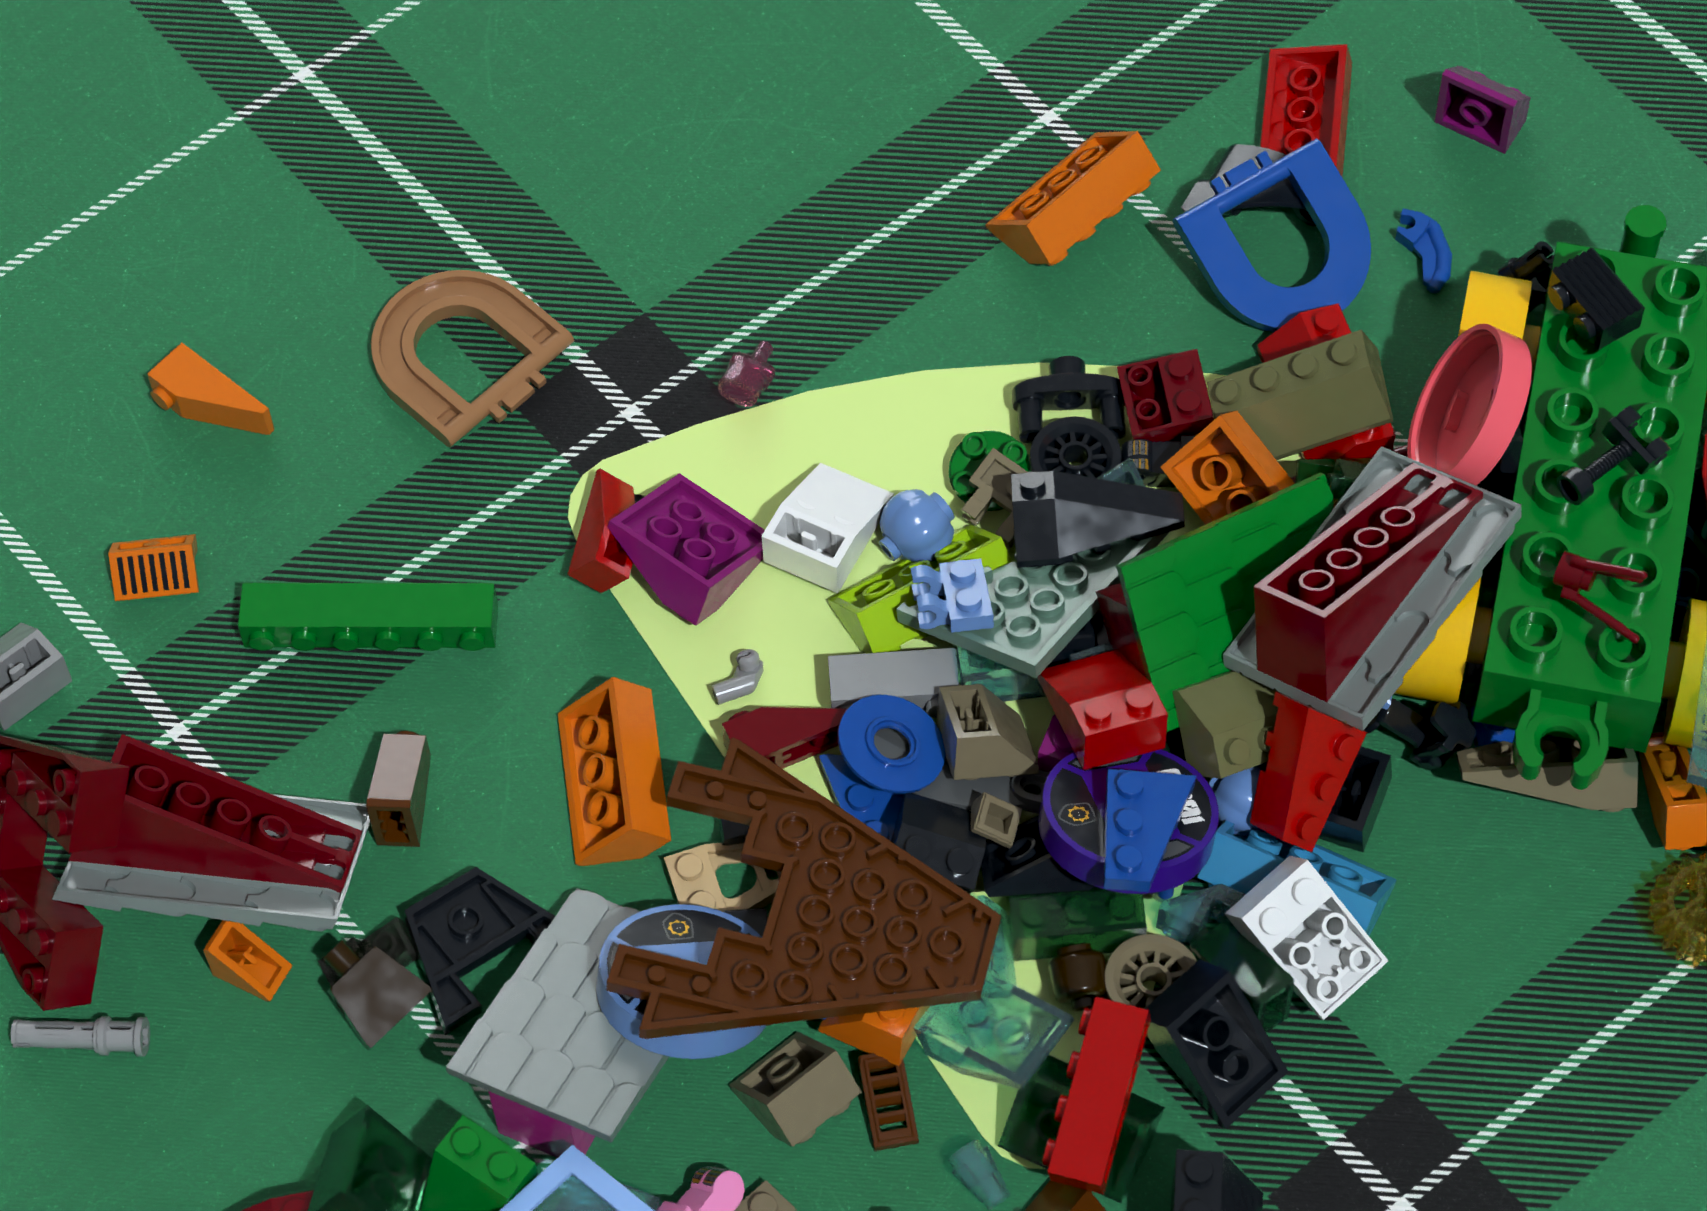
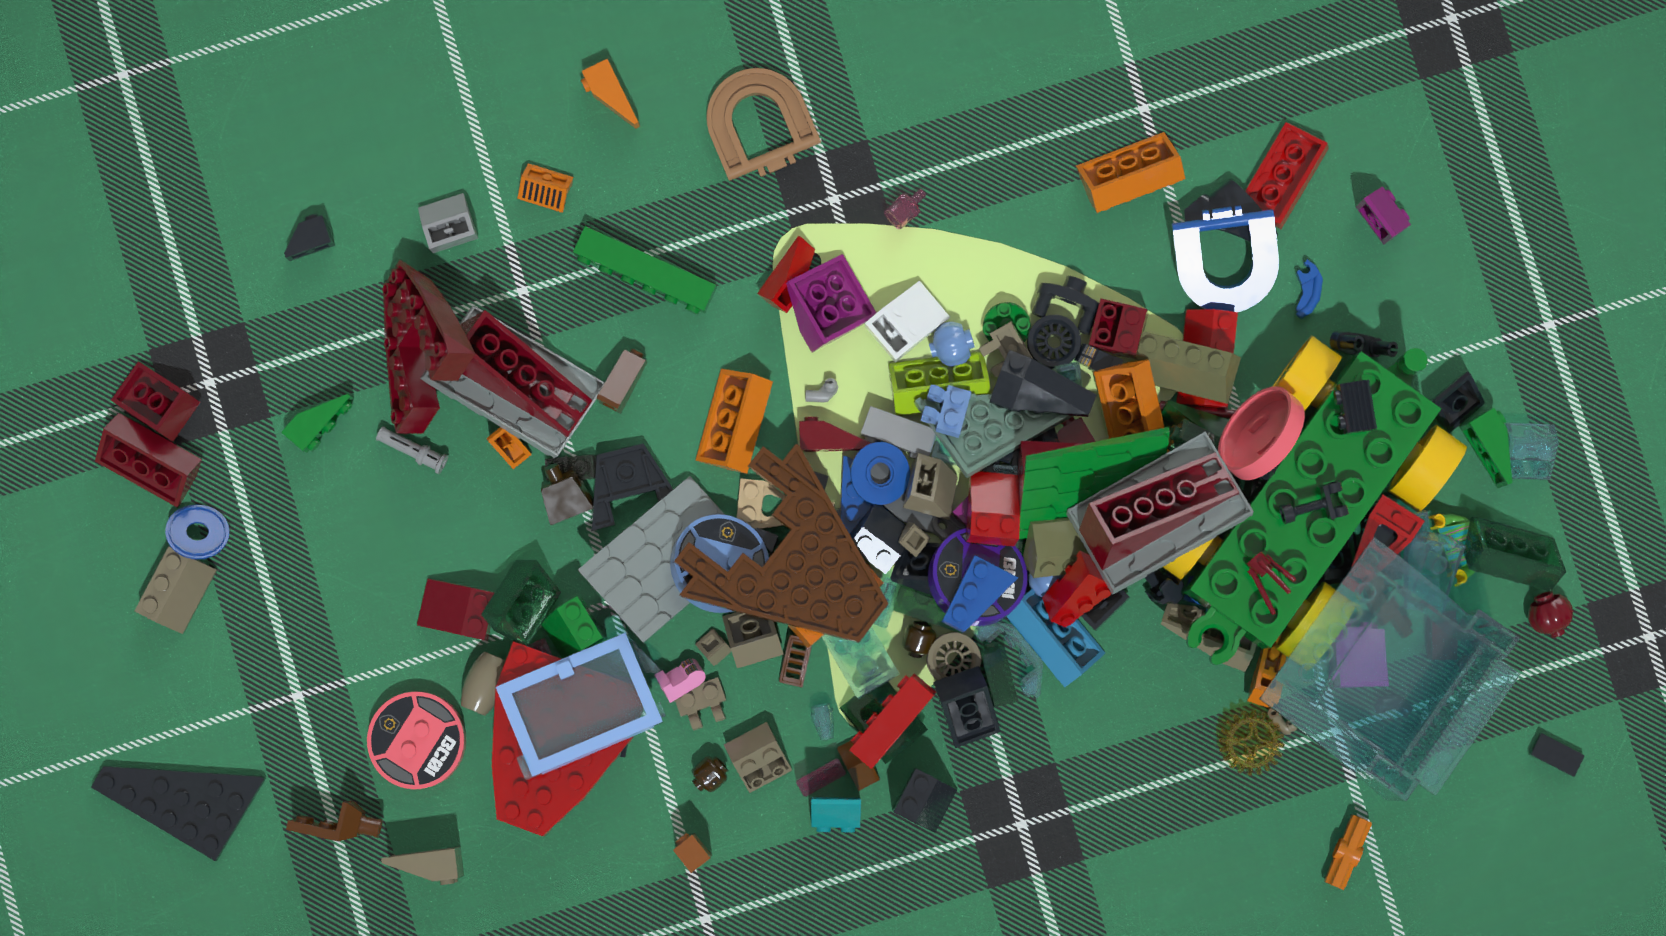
camera: 20 degrees right, 25 degrees up
(737, 1139) = (713, 647): none -> dark tan slope
(1308, 934) = (1037, 675): white slope -> none

